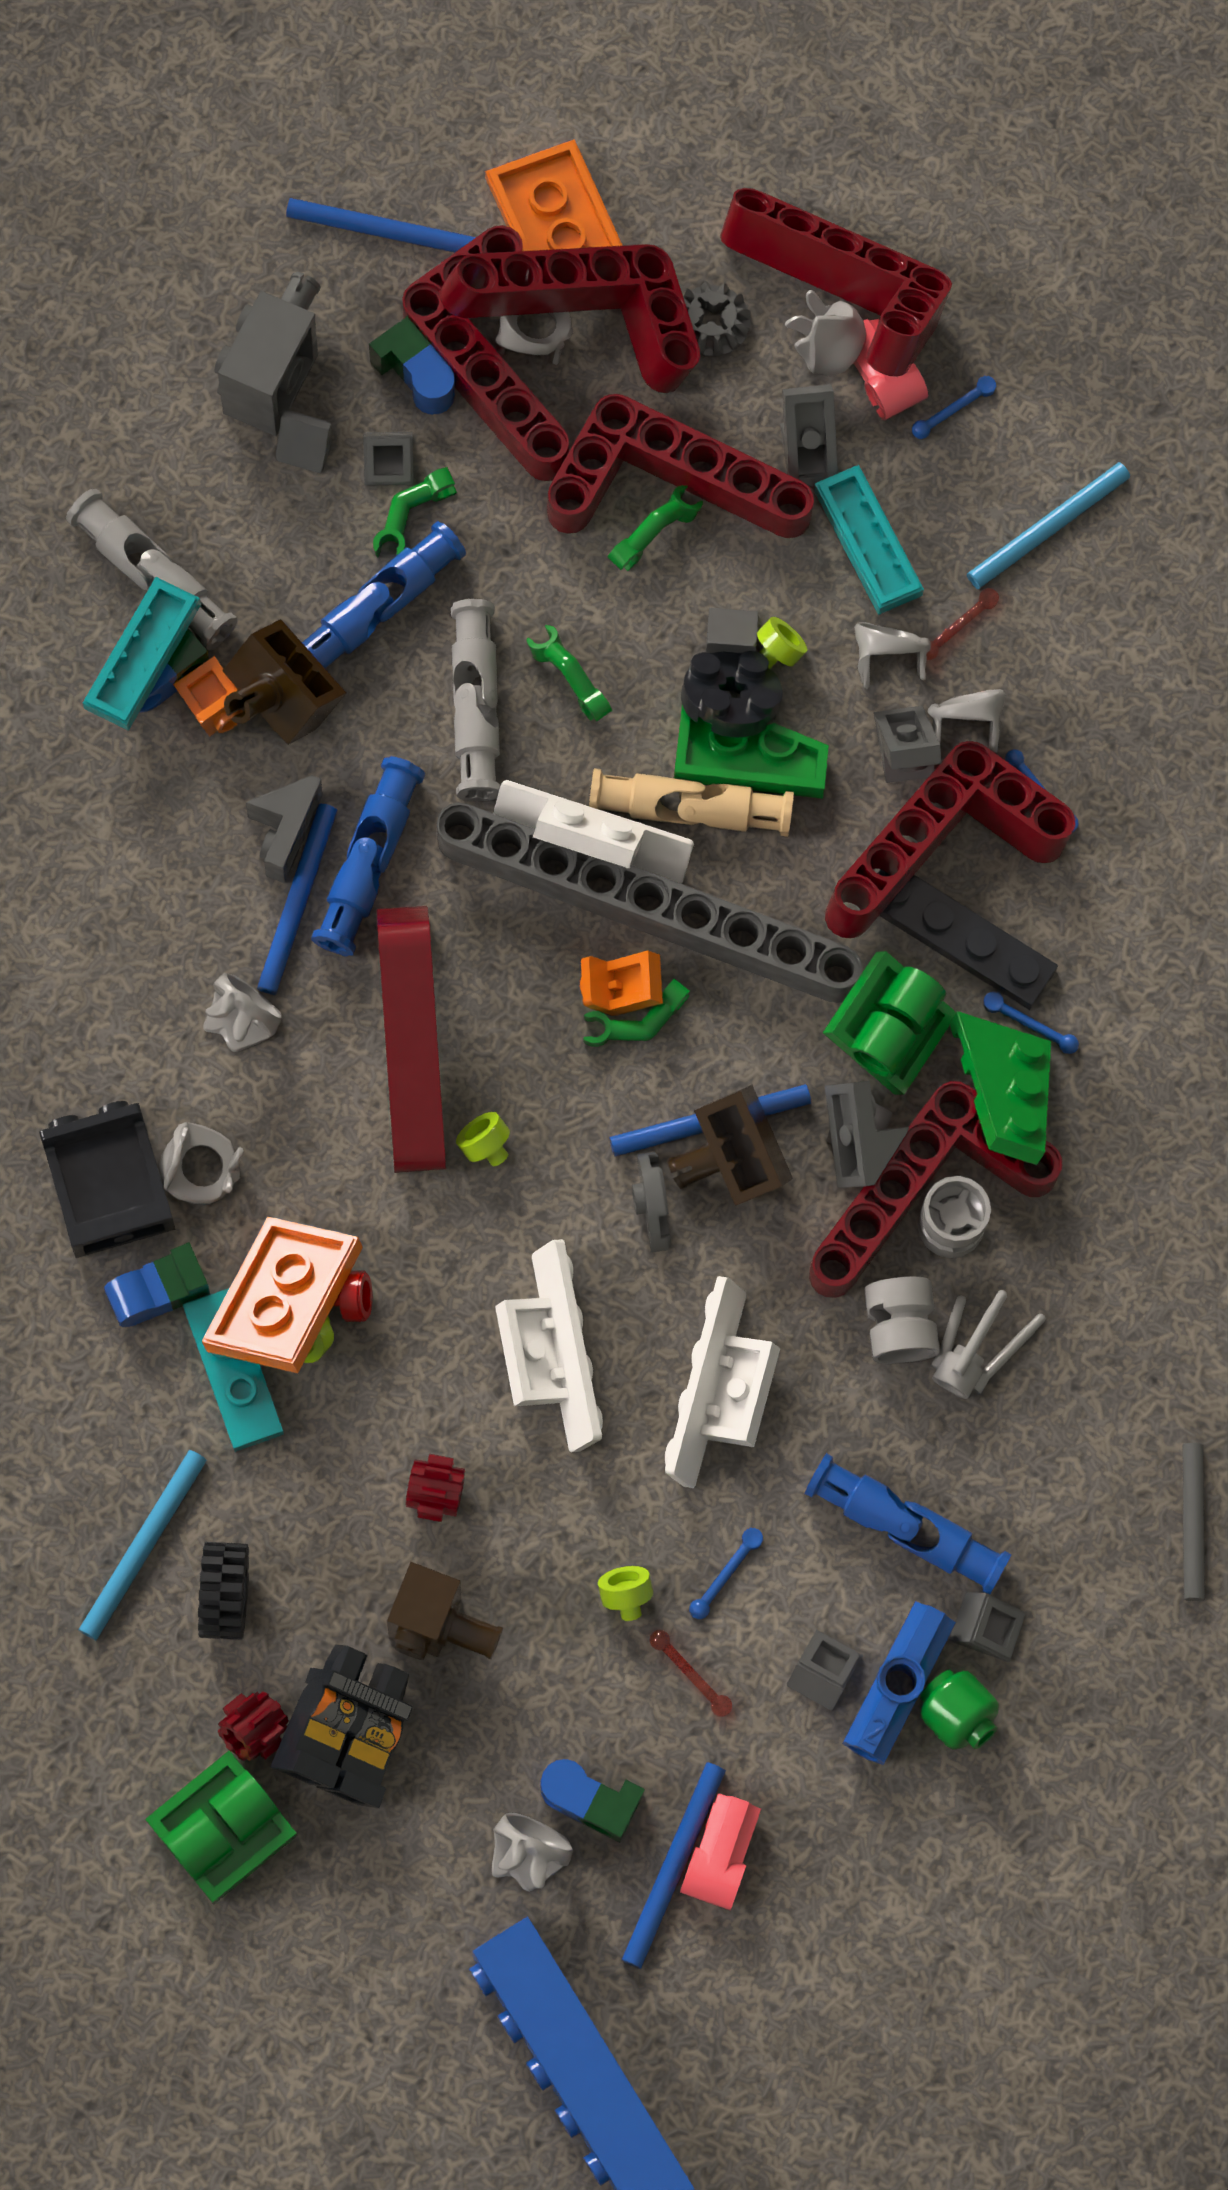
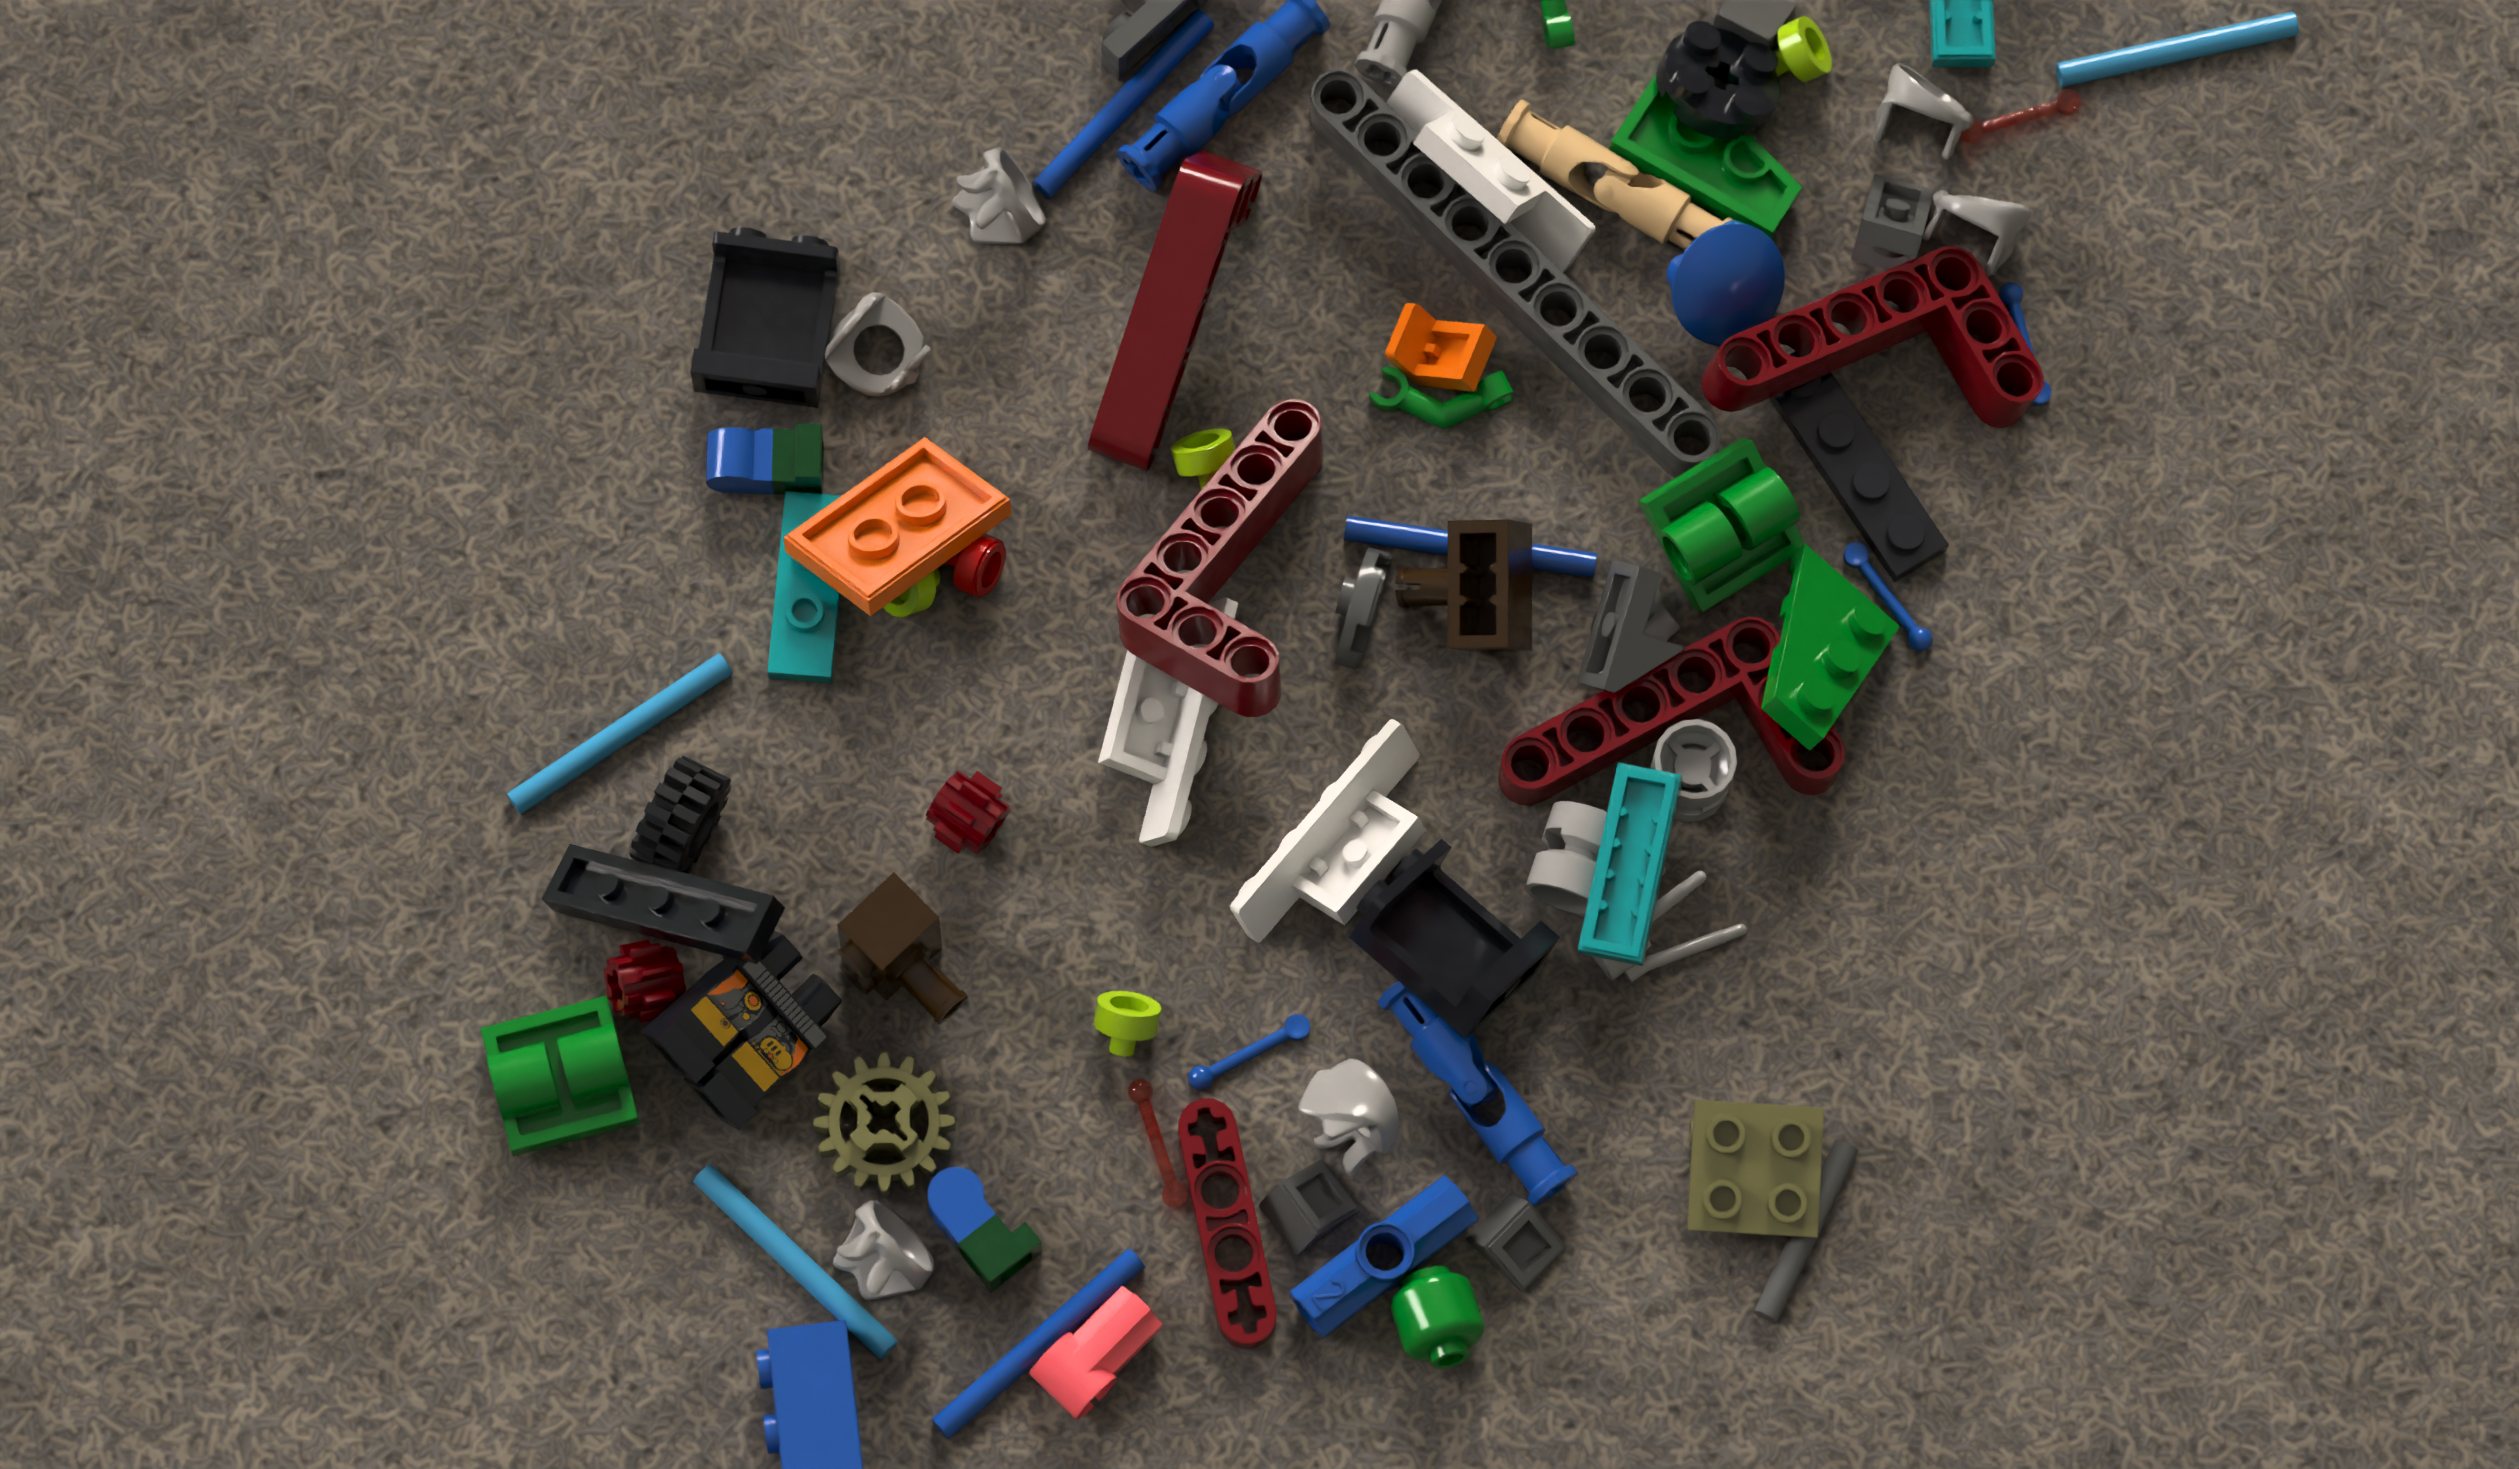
camera: 25 degrees right, 0 degrees up
(243, 1662) = (663, 903): none -> black plate
(463, 1886) = (795, 1261): none -> dark azure piece
(508, 1761) = (864, 1145): none -> olive gear
(530, 1212) = (1213, 555): none -> dark red beam
(764, 1714) = (1233, 1222): none -> dark red beam
(808, 841) = (1726, 282): none -> blue dish
(827, 1579) = (1355, 1106): none -> light grey piece
(837, 1427) = (1446, 942): none -> black panel
(947, 1308) = (1630, 864): none -> teal plate
(1138, 1493) = (1755, 1168): none -> olive hinge

